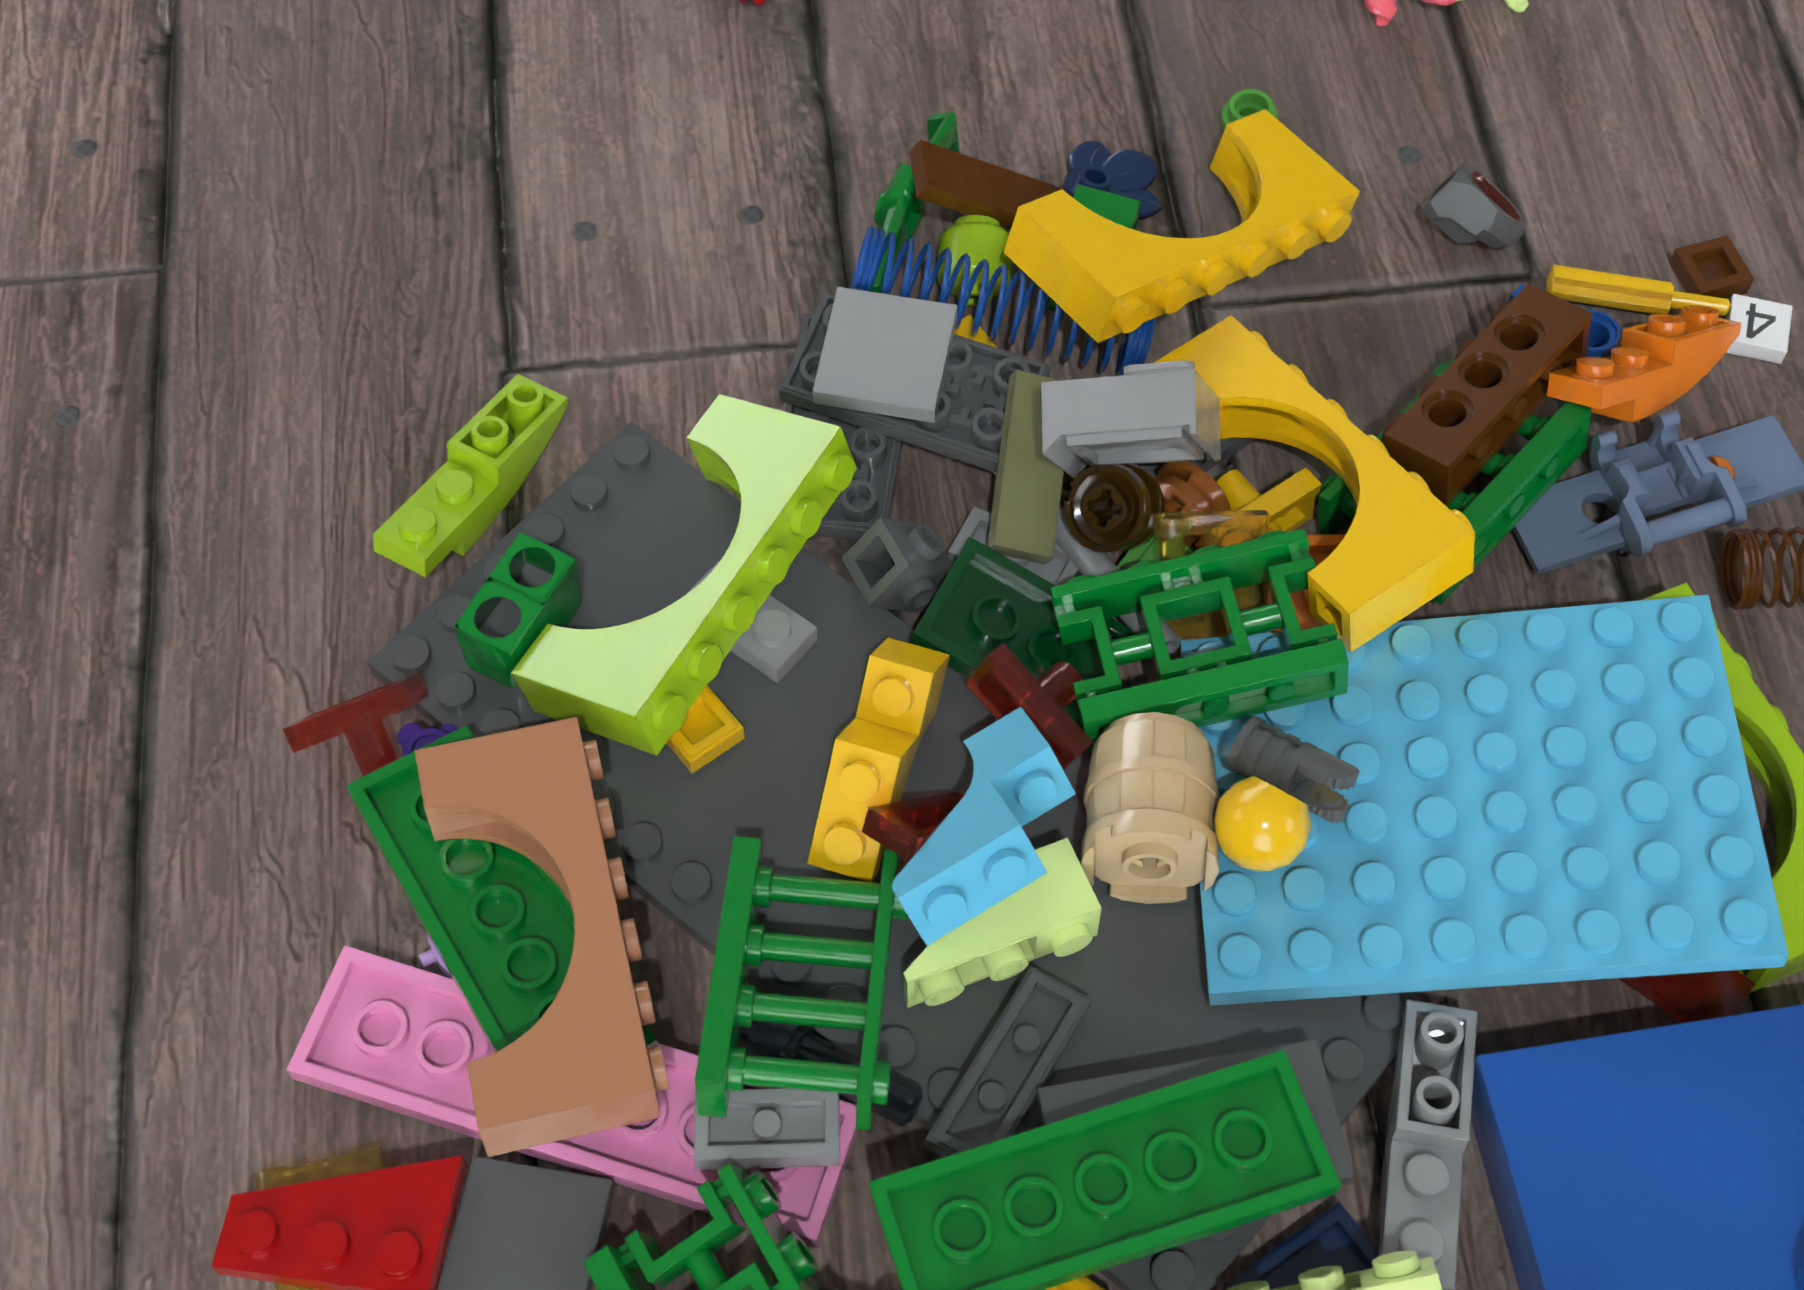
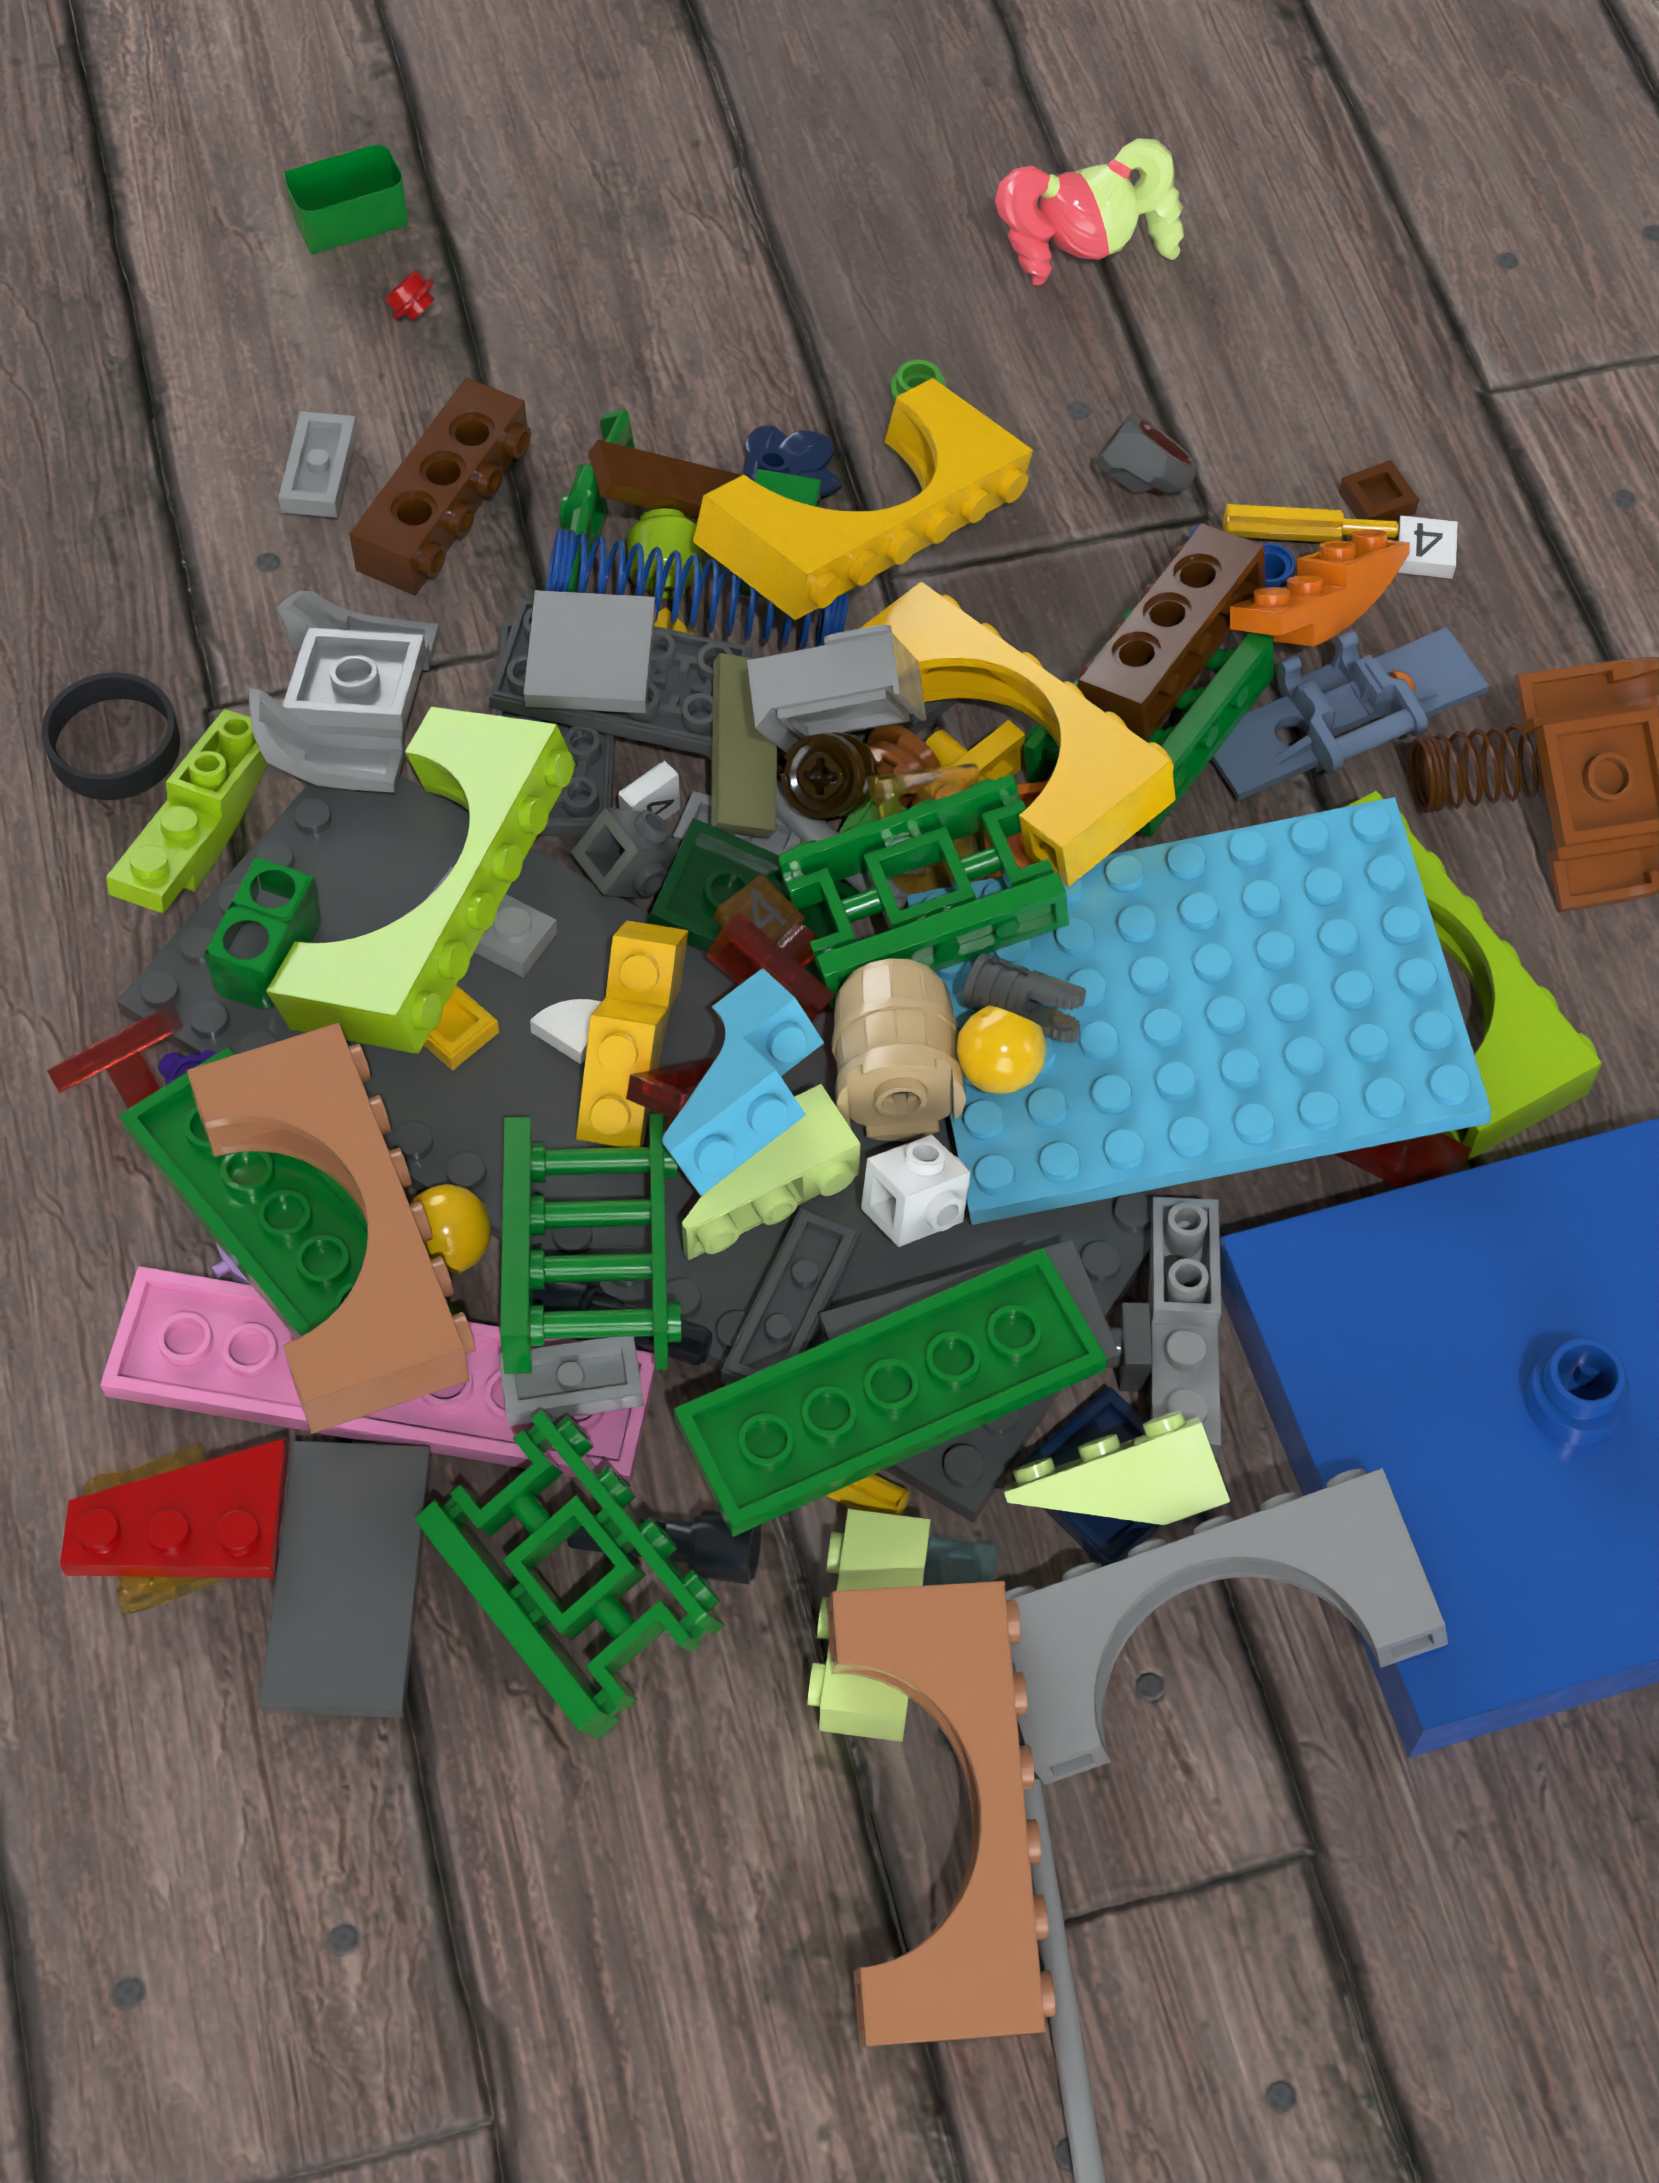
camera: 10 degrees left, 0 degrees up
(393, 342) = (98, 689): none -> black tyre
(637, 374) = (345, 695): none -> light grey piece
(645, 138) = (318, 464): none -> light grey plate
(670, 941) = (457, 1224): none -> yellow piece
(761, 172) = (440, 486): none -> reddish brown brick
(812, 740) = (566, 1026): none -> white tile
(933, 504) = (653, 791): none -> white tile
(1029, 640) = (763, 907): none -> clear orange tile
(1154, 964) = (915, 1190): none -> white brick
(1370, 1161) = (1134, 1346): none -> dark grey plate

